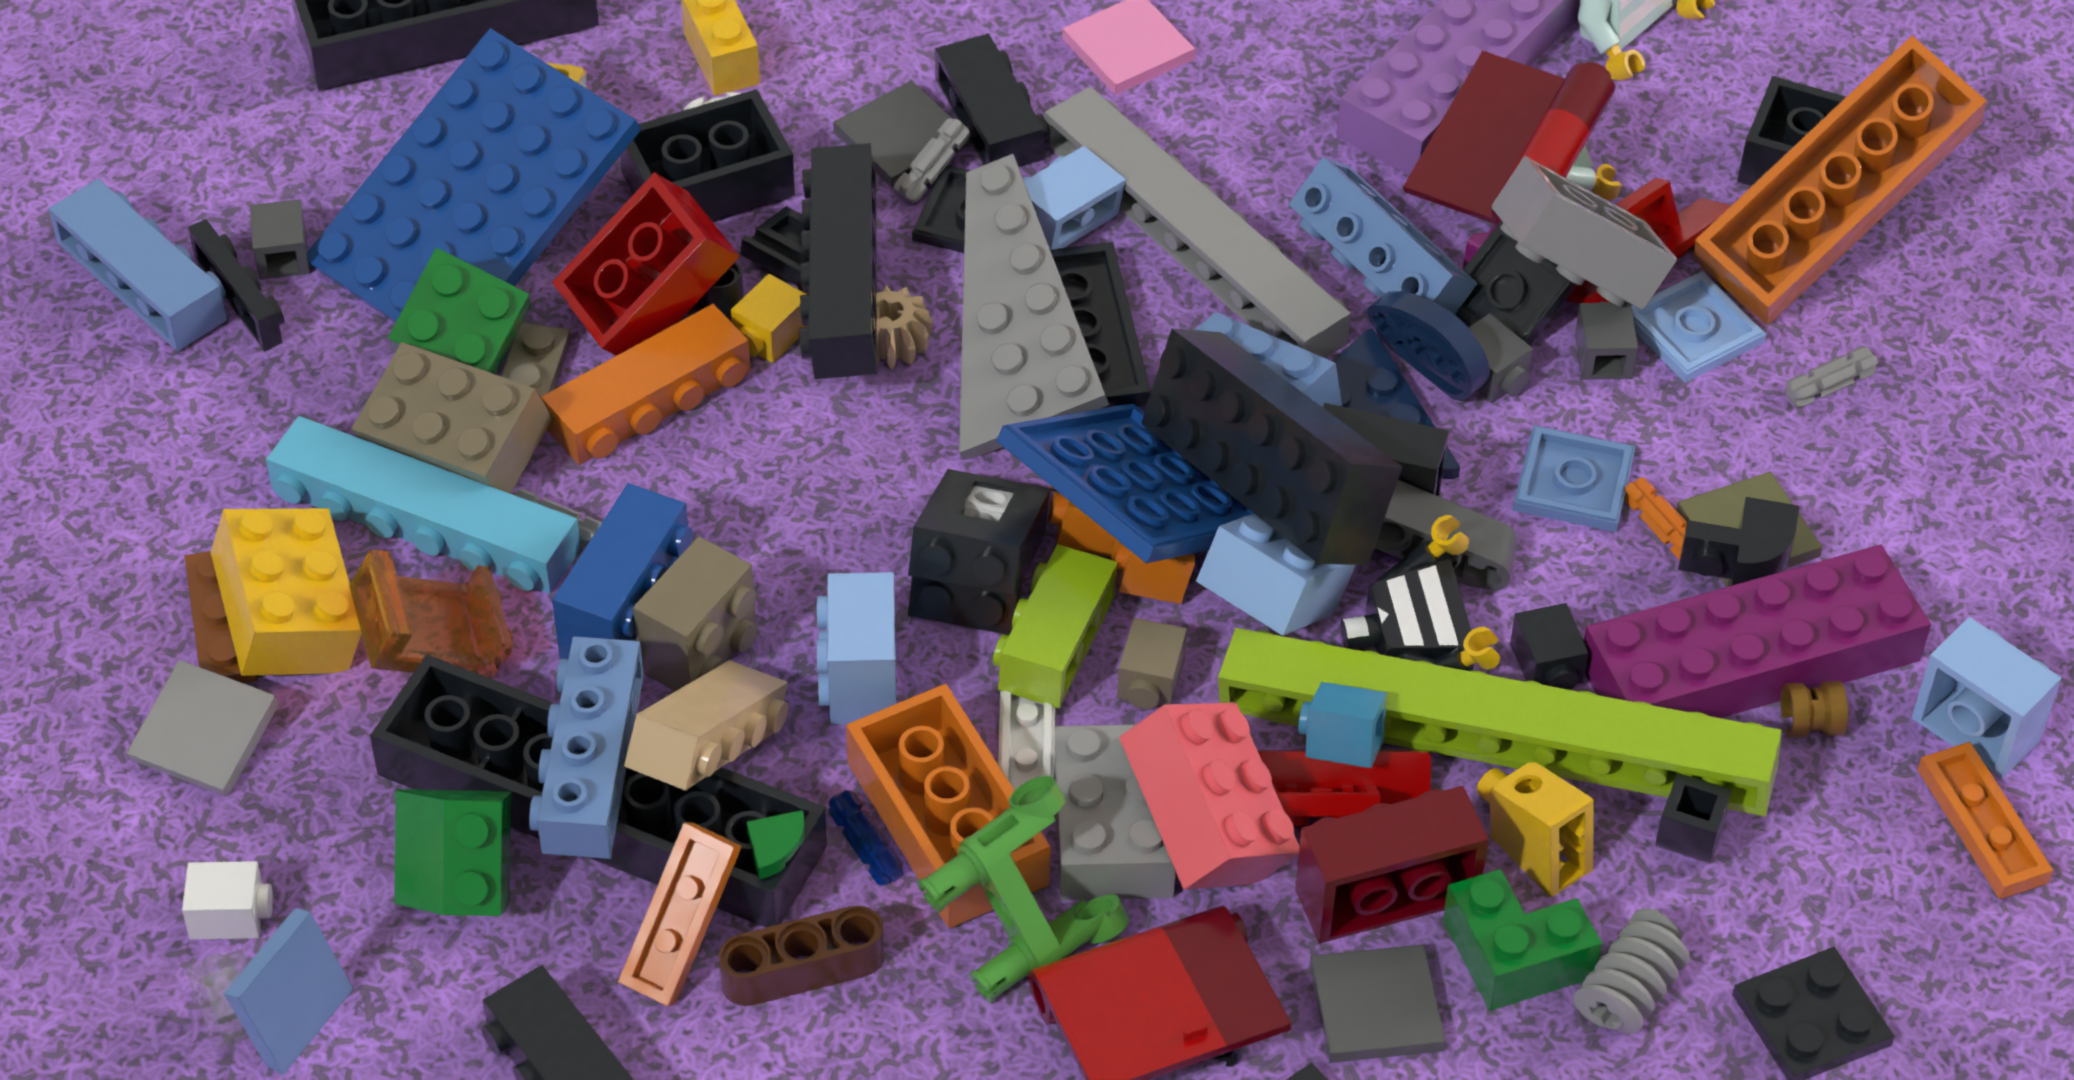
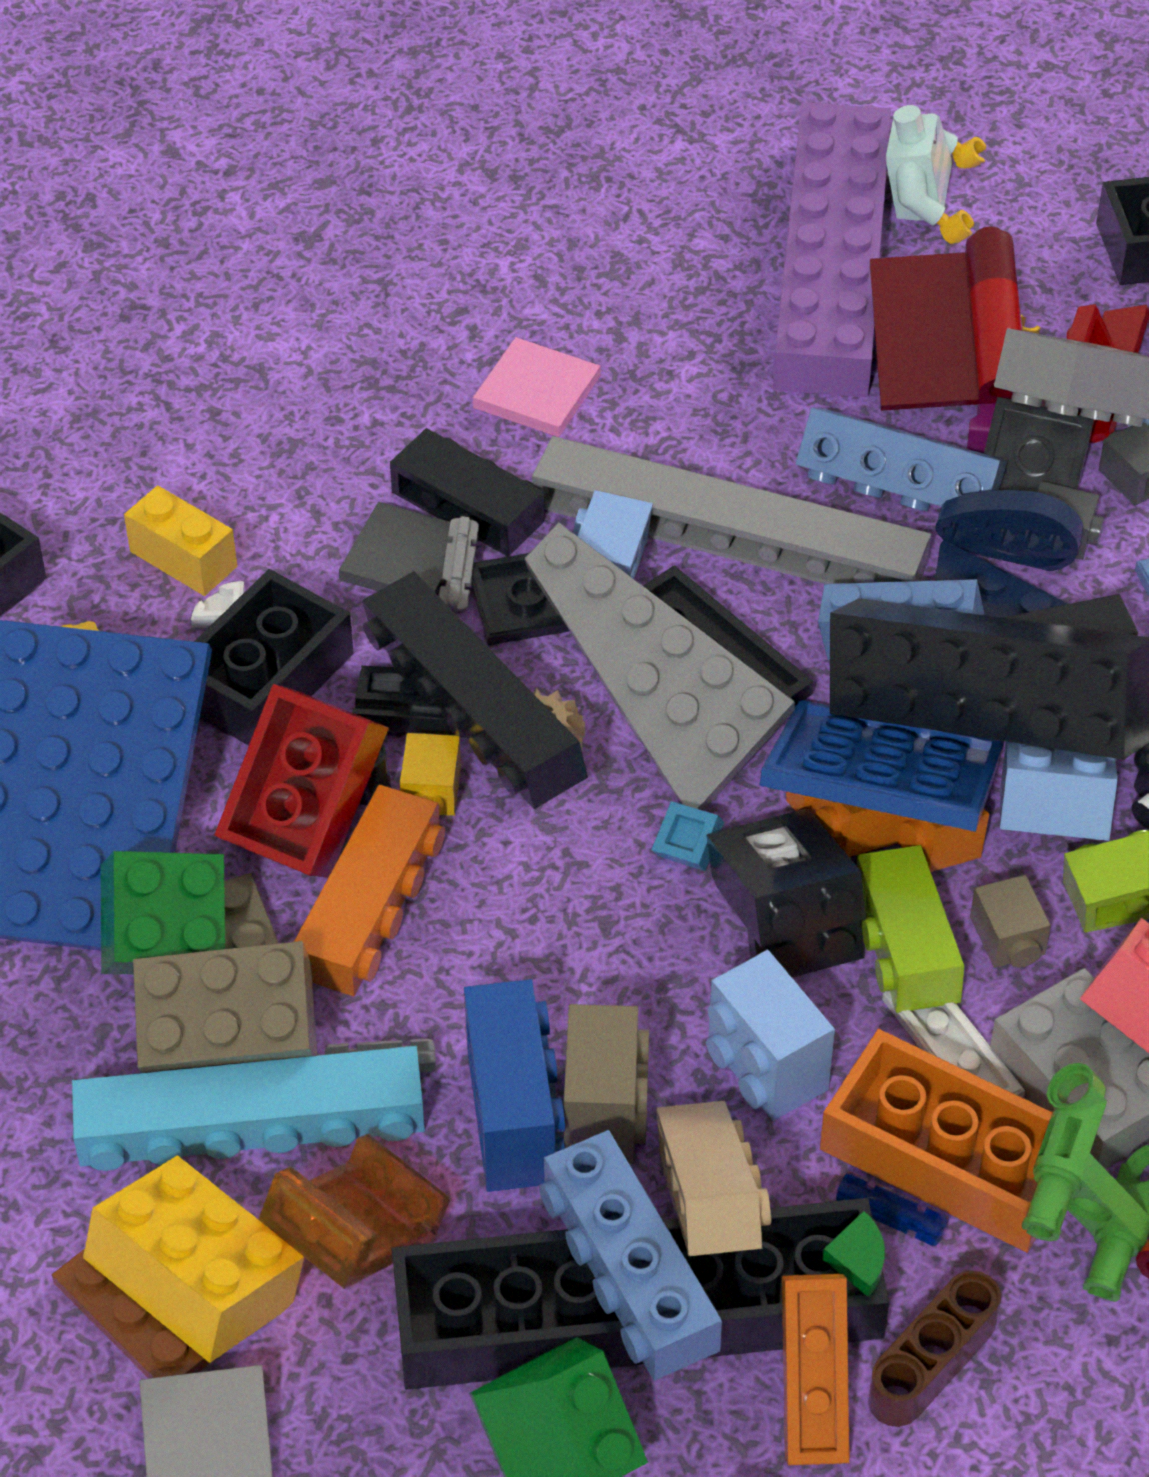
camera: 30 degrees left, 0 degrees up
(934, 460) = (684, 835): none -> dark azure plate

